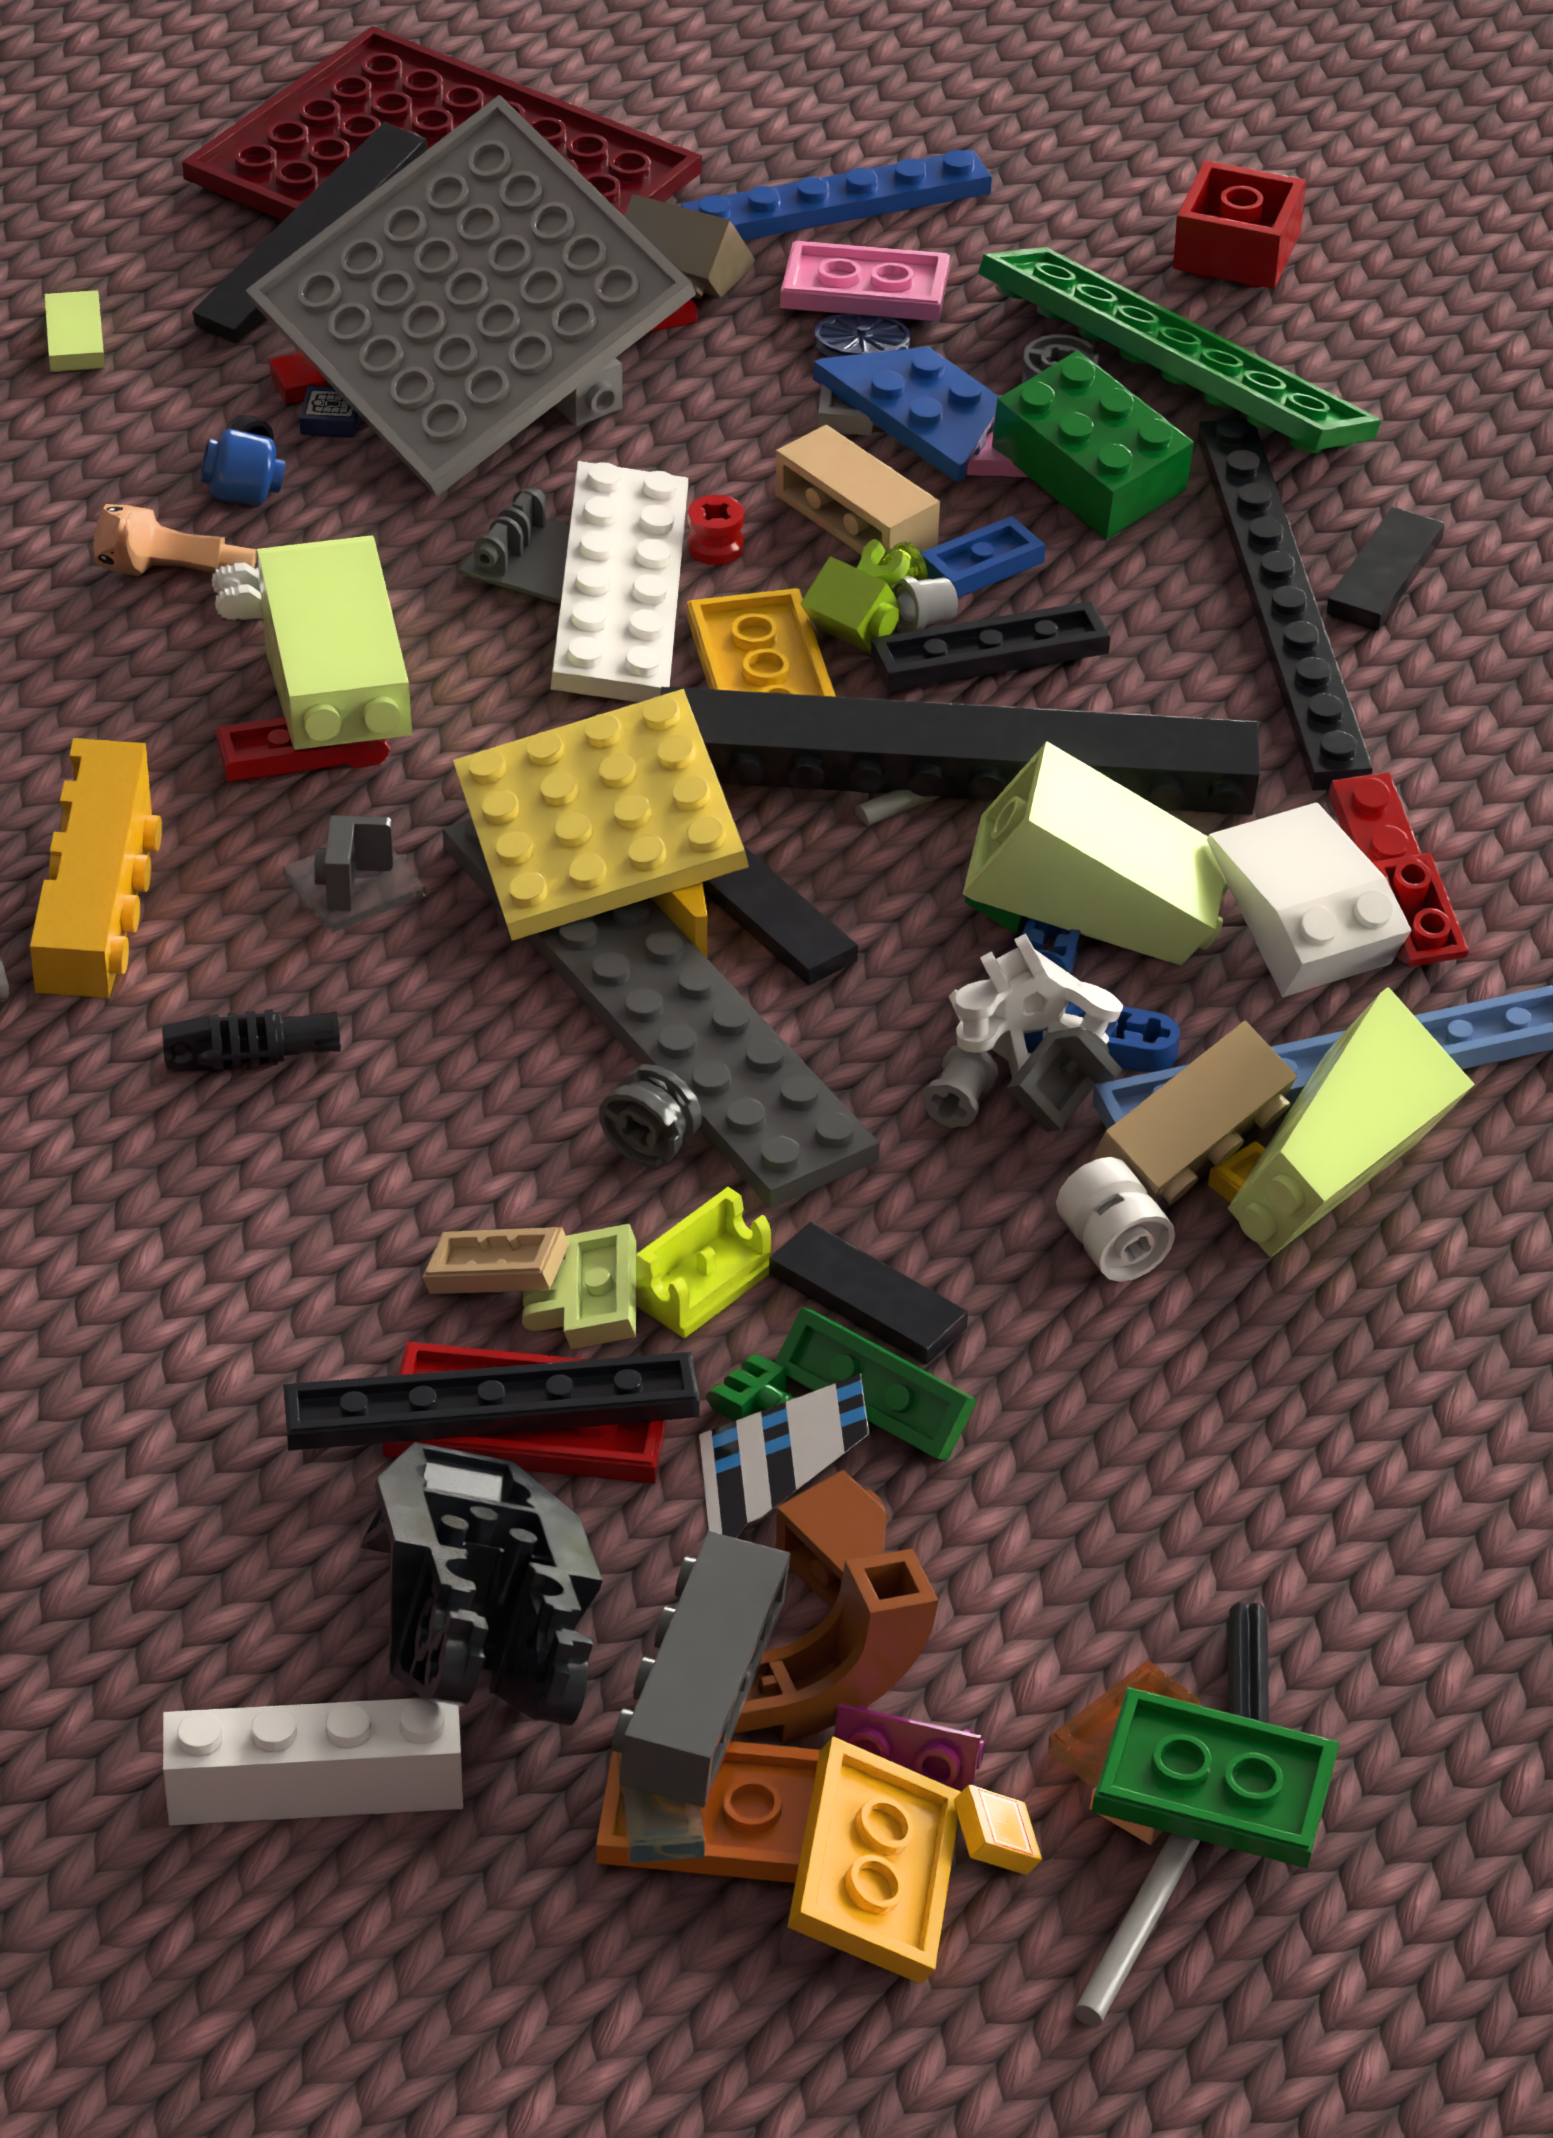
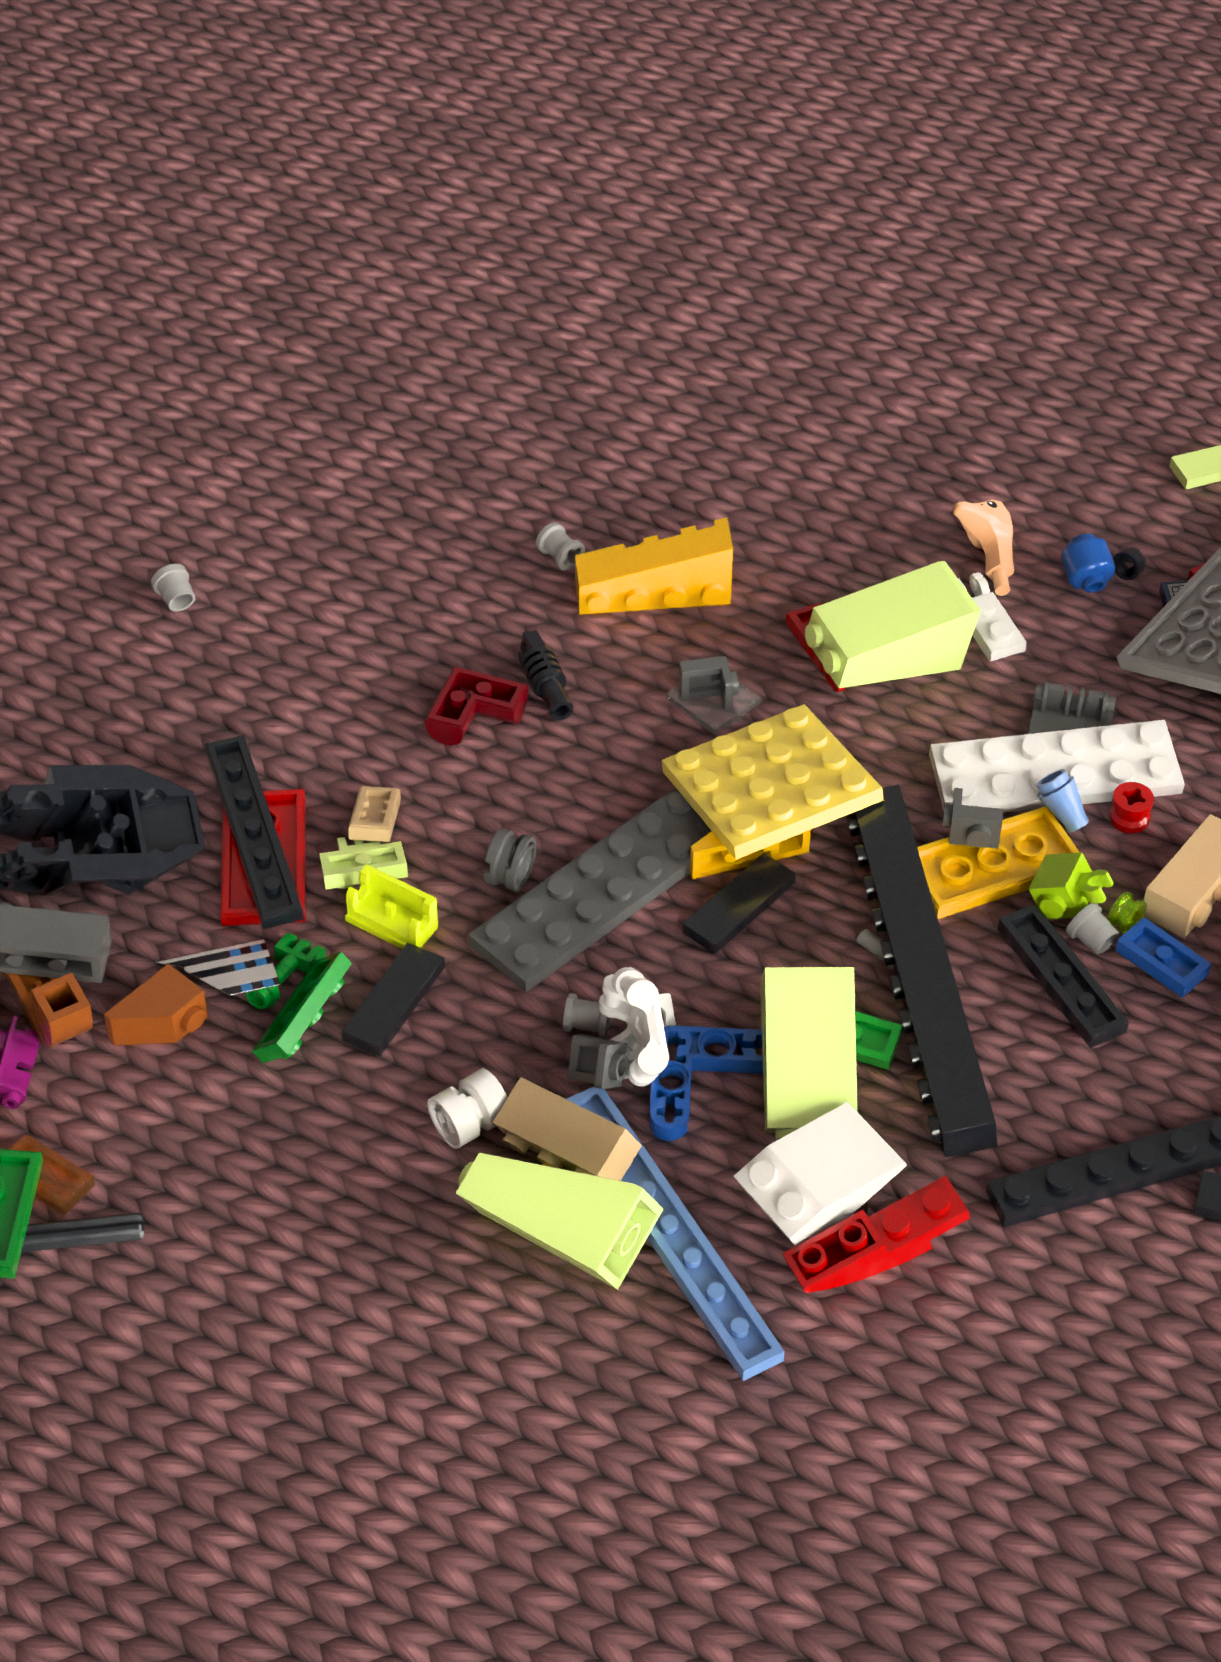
camera: 80 degrees right, 5 degrees up
(282, 1125) = (471, 694): none -> dark red brick
(695, 571) = (1062, 798): none -> medium blue cone
(722, 661) = (972, 824): none -> dark grey bracket

